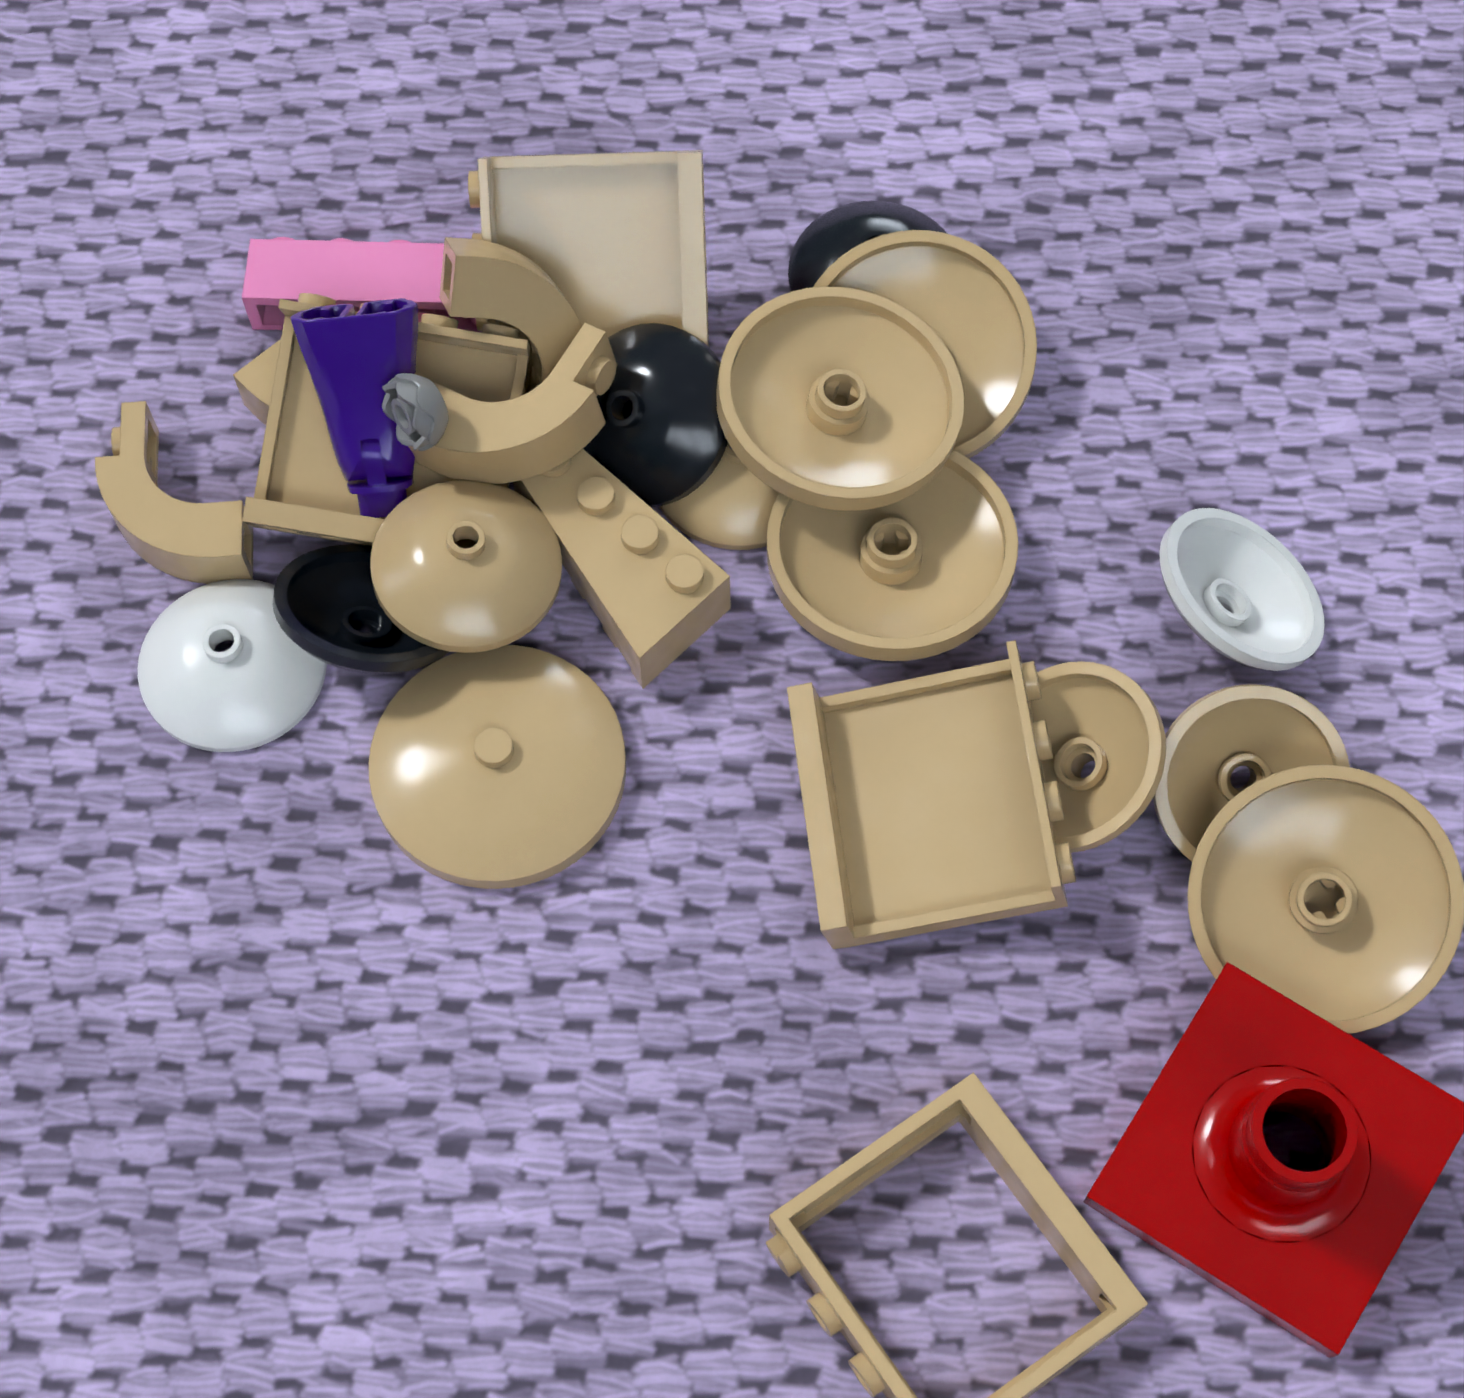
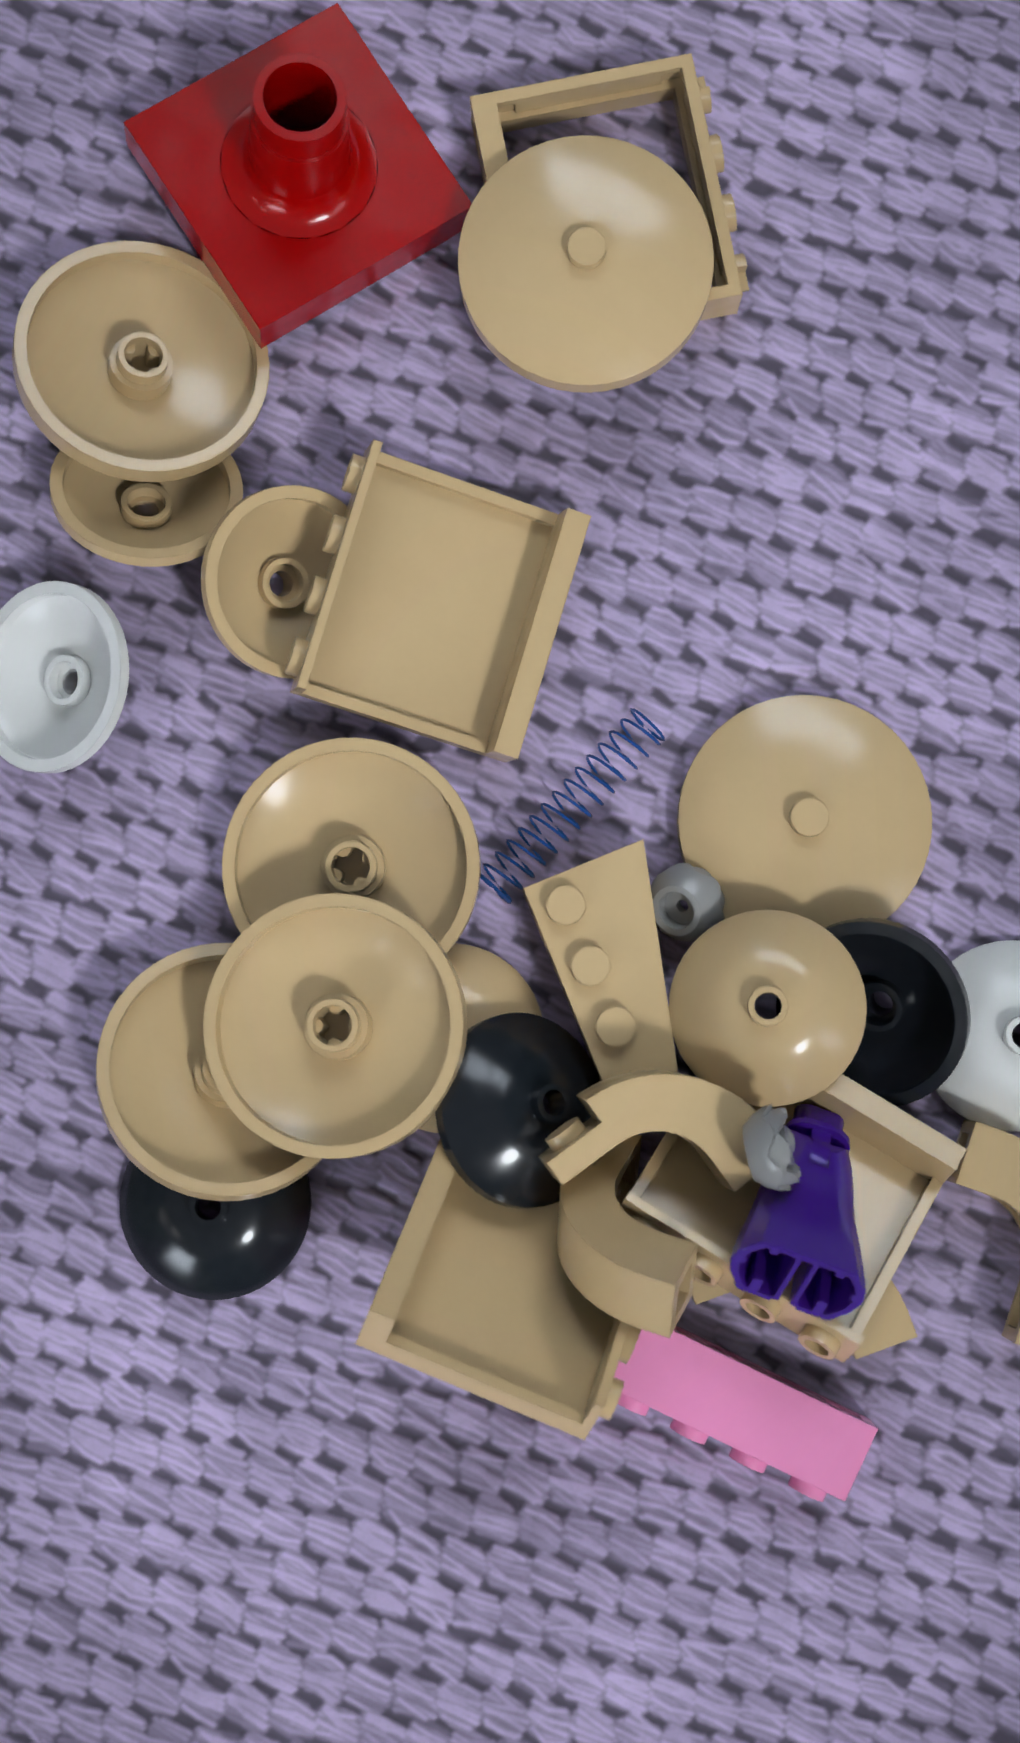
camera: 155 degrees left, 20 degrees up
(578, 642) = (698, 890): none -> light grey plate
(740, 593) = (503, 894): none -> blue piece
(942, 1170) = (585, 263): none -> tan dish

